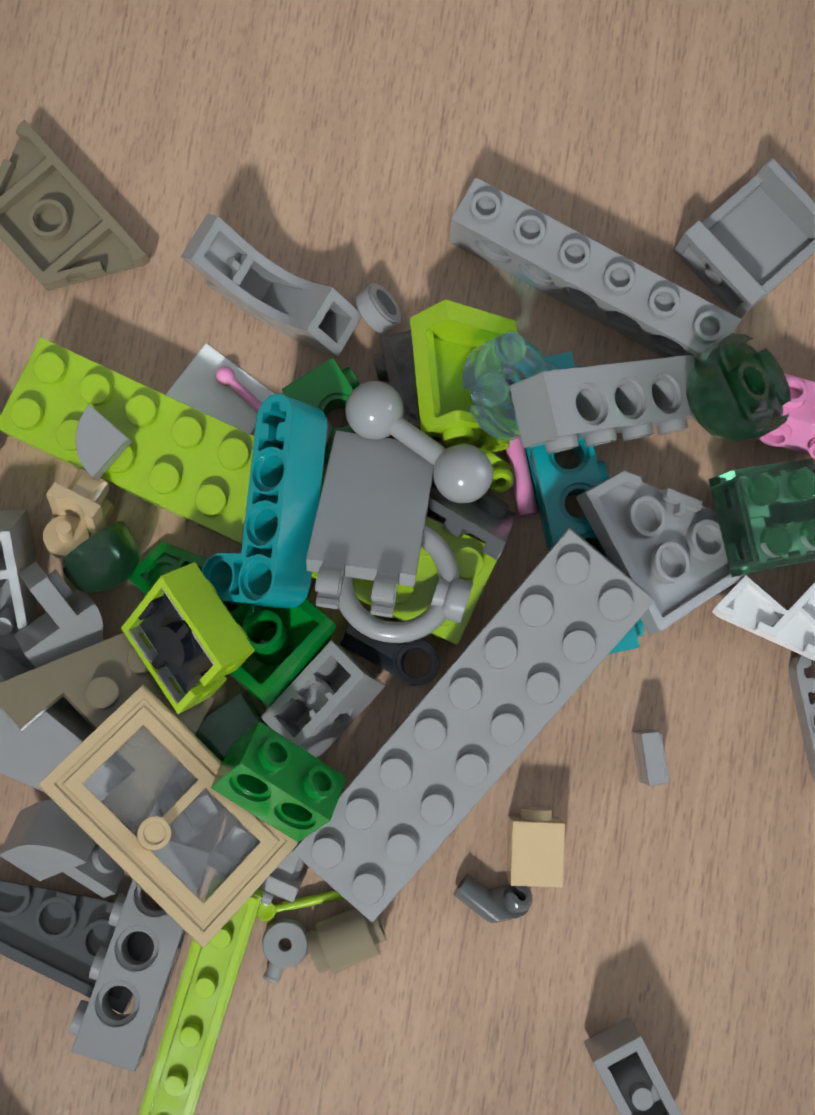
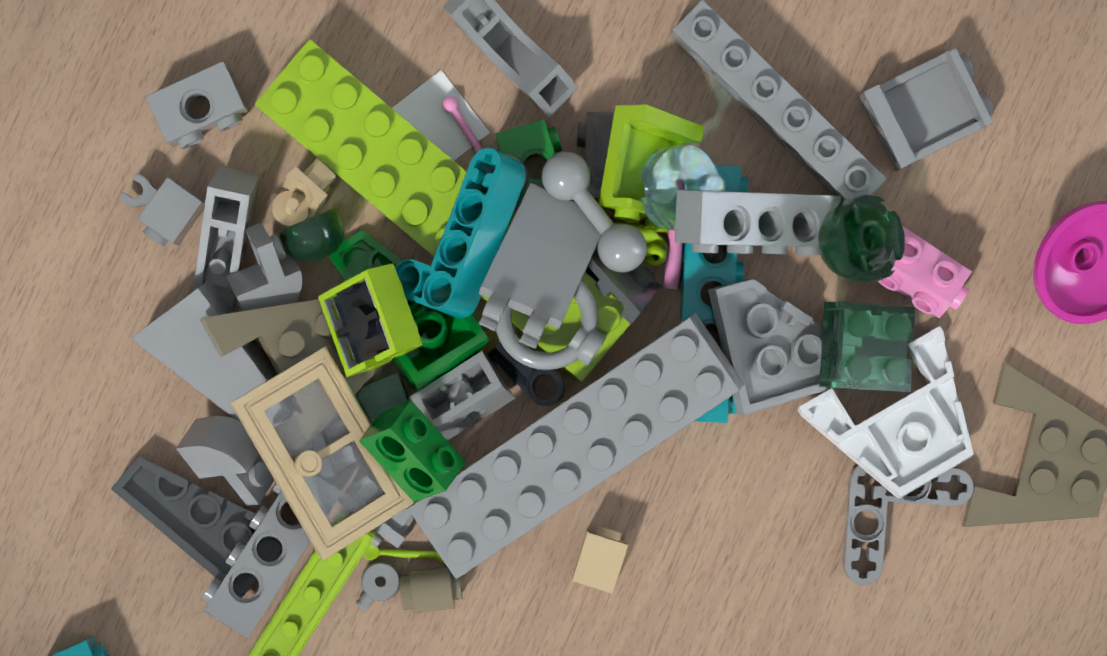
camera: 20 degrees right, 5 degrees up
(98, 442) = (338, 143): light grey tile -> none
(378, 308) = (593, 83): light grey tile -> none
(494, 904) = (557, 596): dark grey arm -> none
(650, 757) = (713, 512): light grey tile -> none

